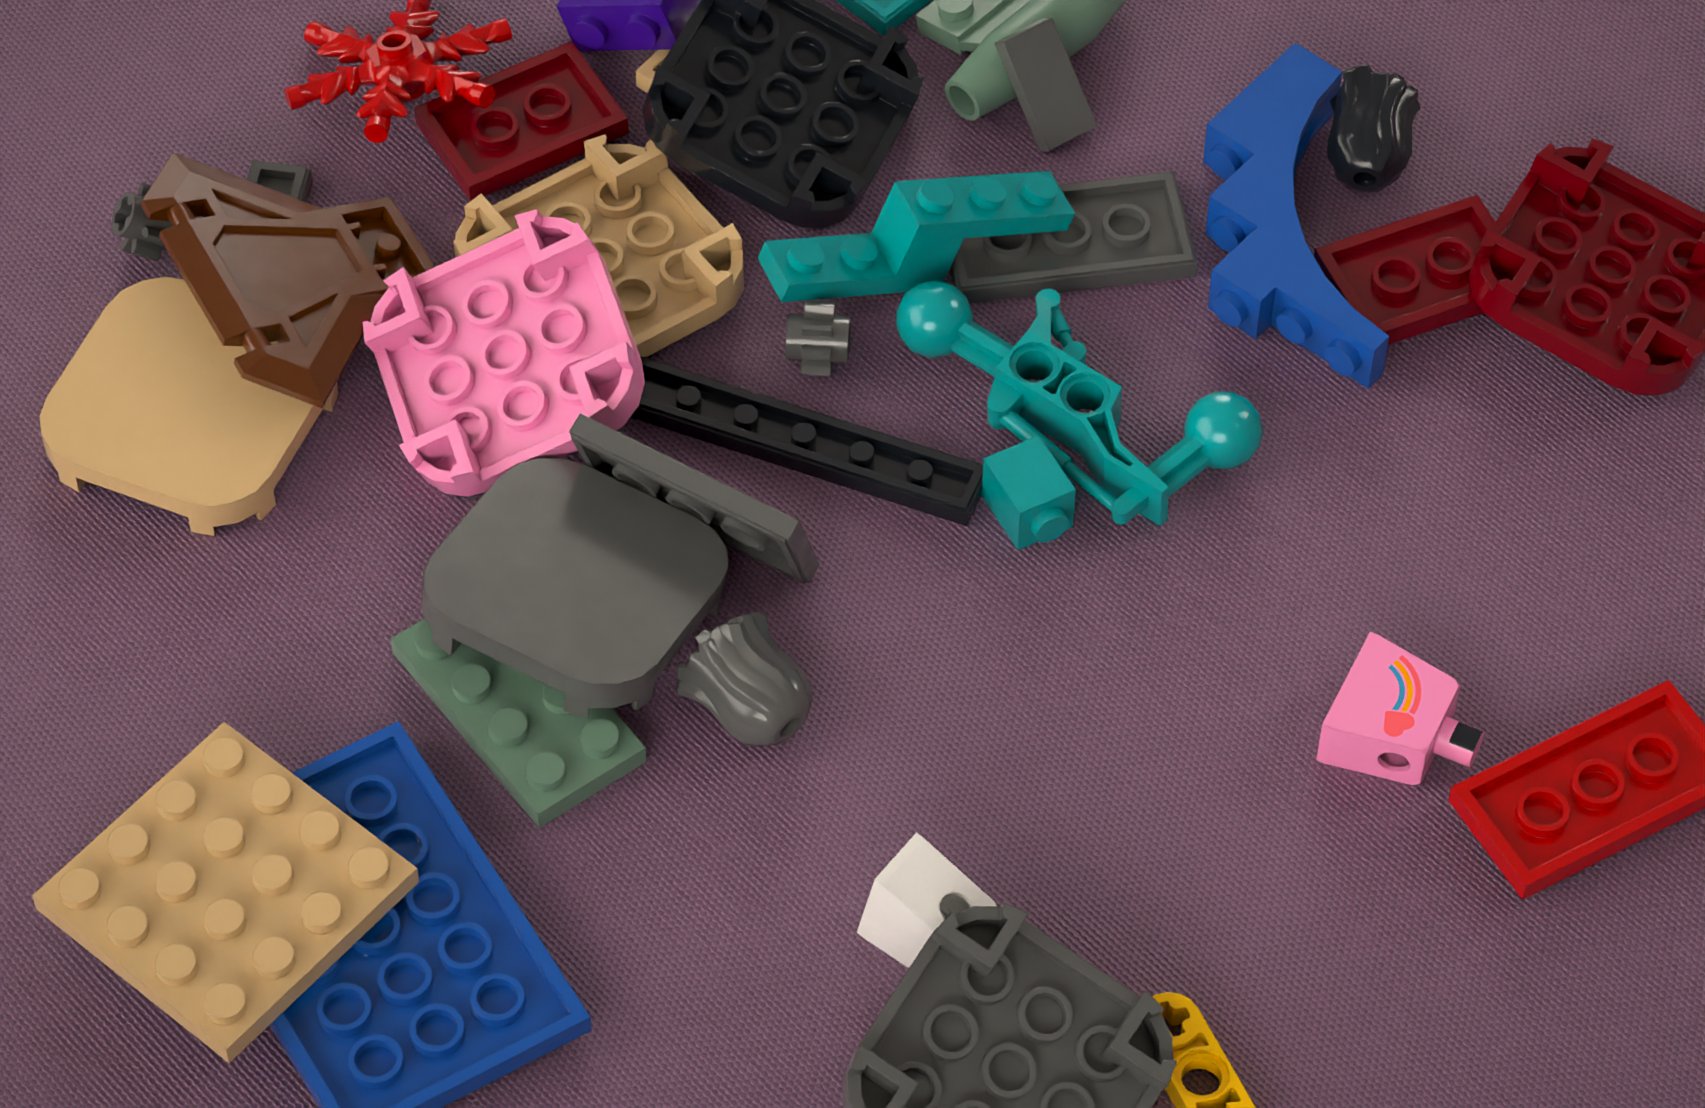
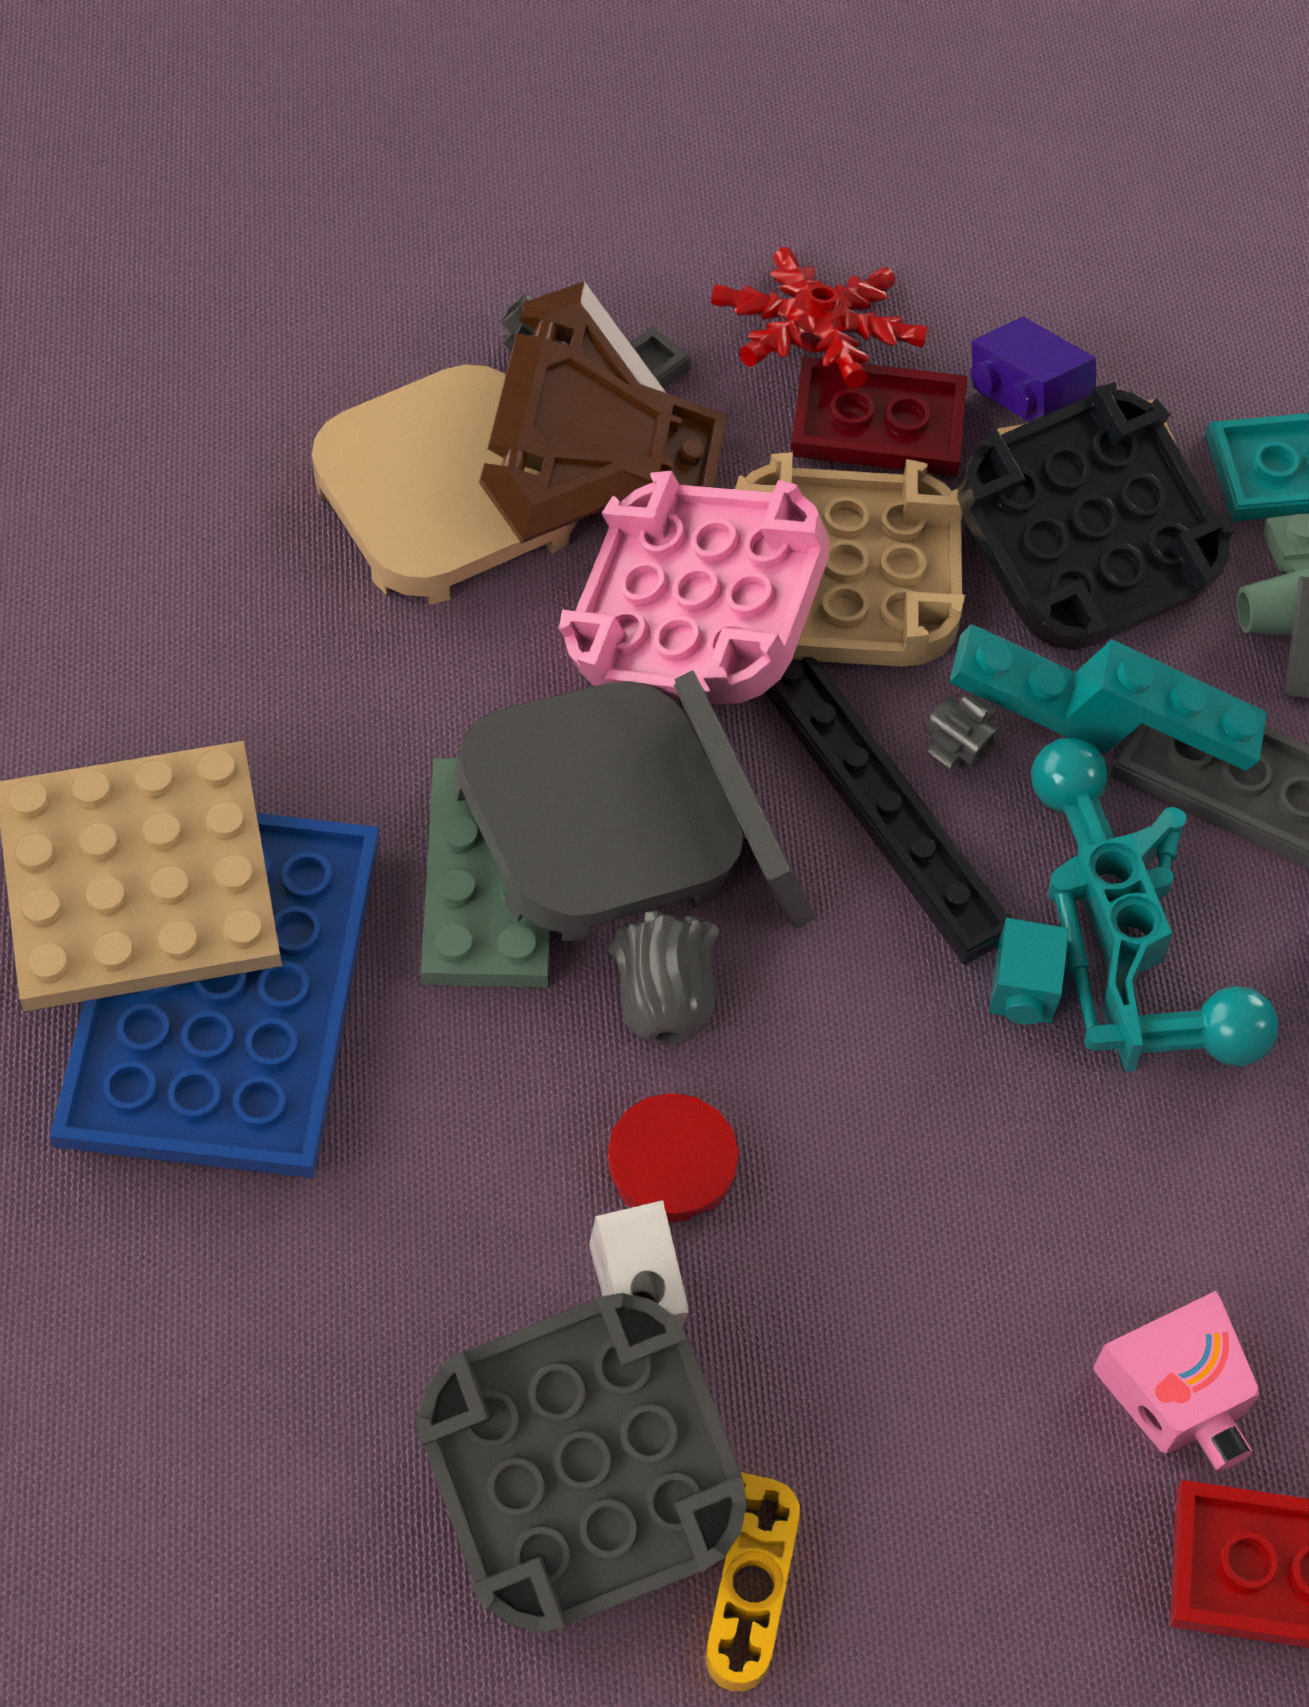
camera: 35 degrees right, 5 degrees up
(864, 816) = (673, 1153): none -> red tile

